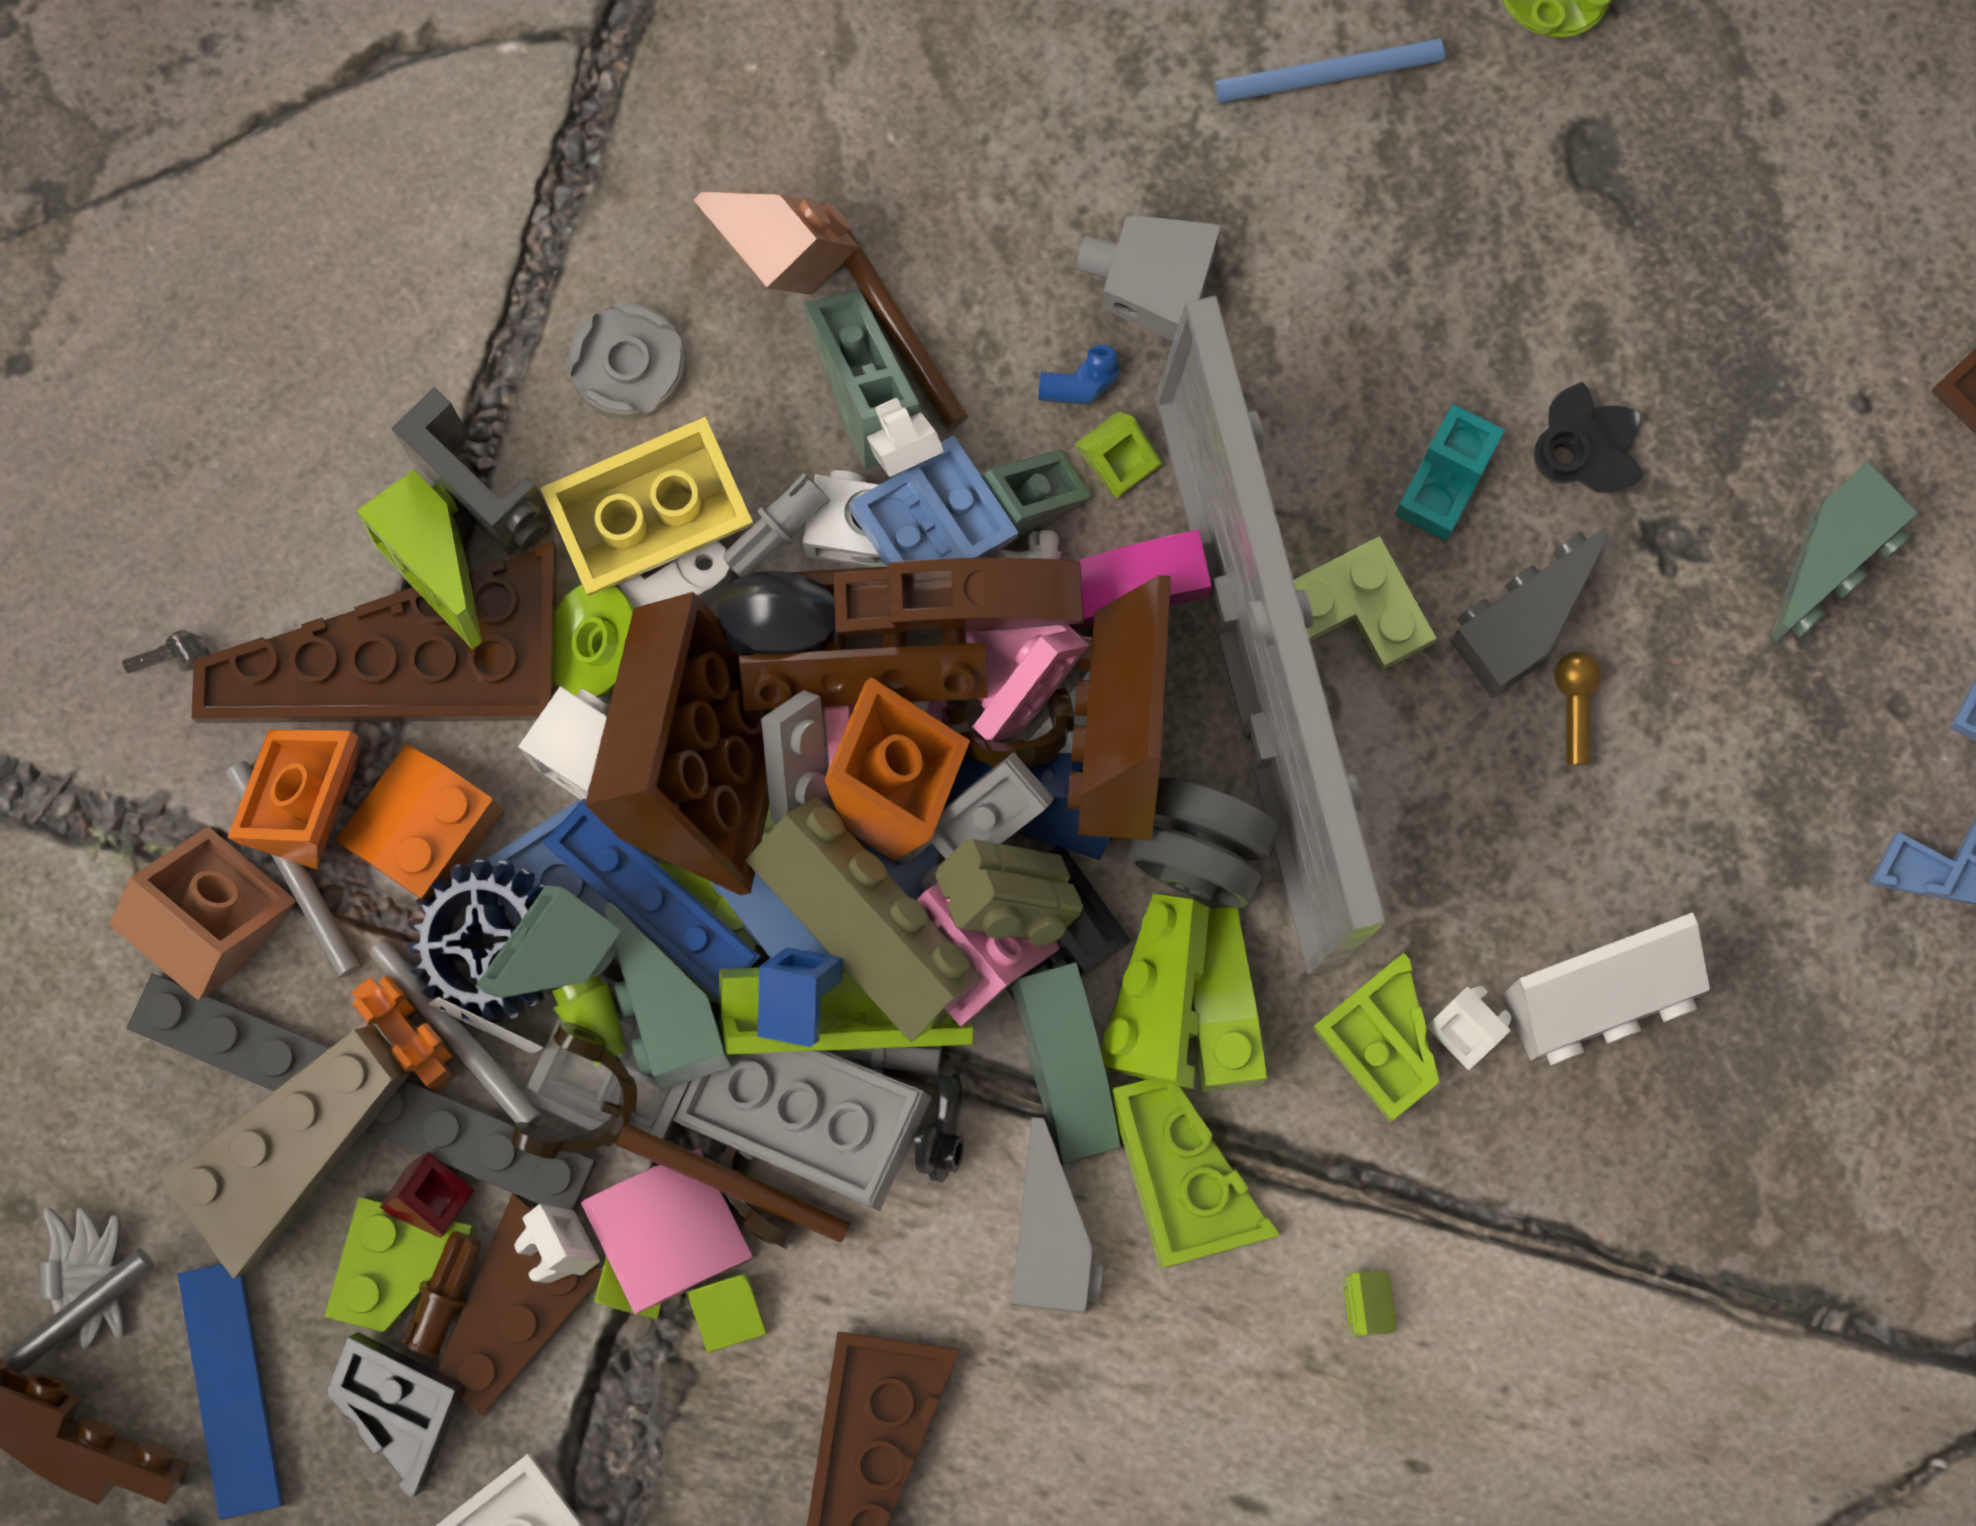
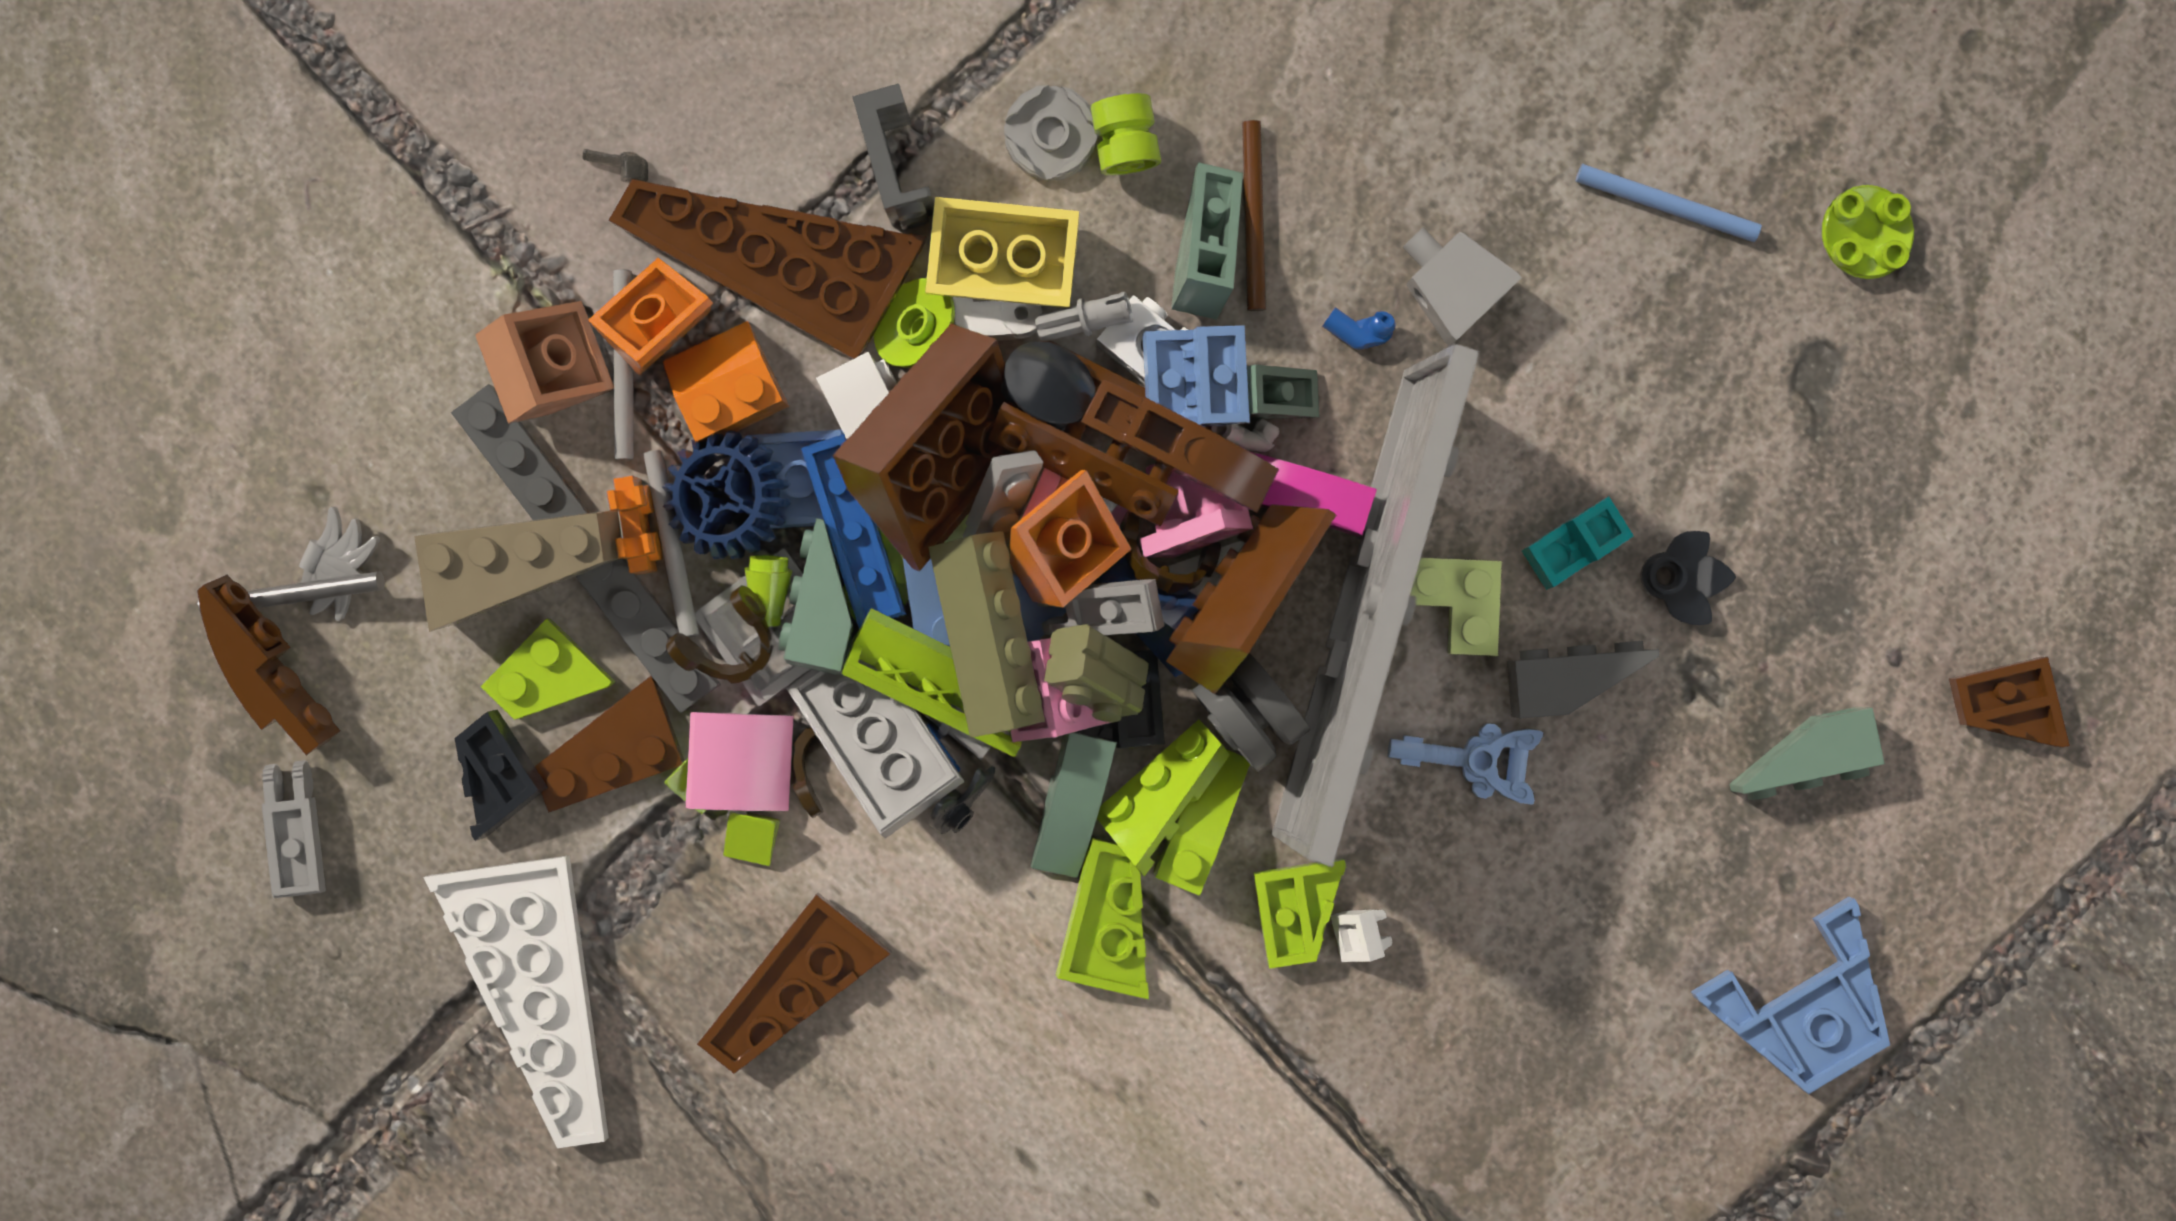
camera: 25 degrees right, 10 degrees up
(230, 1392) = (391, 701): blue tile -> none
(421, 540) = (835, 189): lime slope -> none
(427, 1196) = (592, 645): dark red slope -> none
(442, 1295) = (566, 718): reddish brown axle -> none
(486, 1026) = (693, 552): white sticker -> none
(552, 947) = (760, 533): sand green slope -> none
(560, 1242) = (662, 730): white tile -> none
(703, 308) = (1125, 132): none -> lime wheel
(732, 1182) = (801, 755): reddish brown bar -> none
(780, 237) = (1205, 108): slope -> none
(792, 994) = (908, 658): blue panel -> none
(903, 438) = (1206, 309): white tile -> none
(1053, 1245) = (992, 920): light grey slope -> none
(1118, 453) = (1355, 396): lime slope -> none
(1369, 1303) = (1181, 1078): lime slope -> none
(1484, 763) = (1478, 759): none -> light blue piece
(1578, 677) = (1578, 739): pearl gold bar -> none
(1610, 990) = (1468, 967): white slope -> none

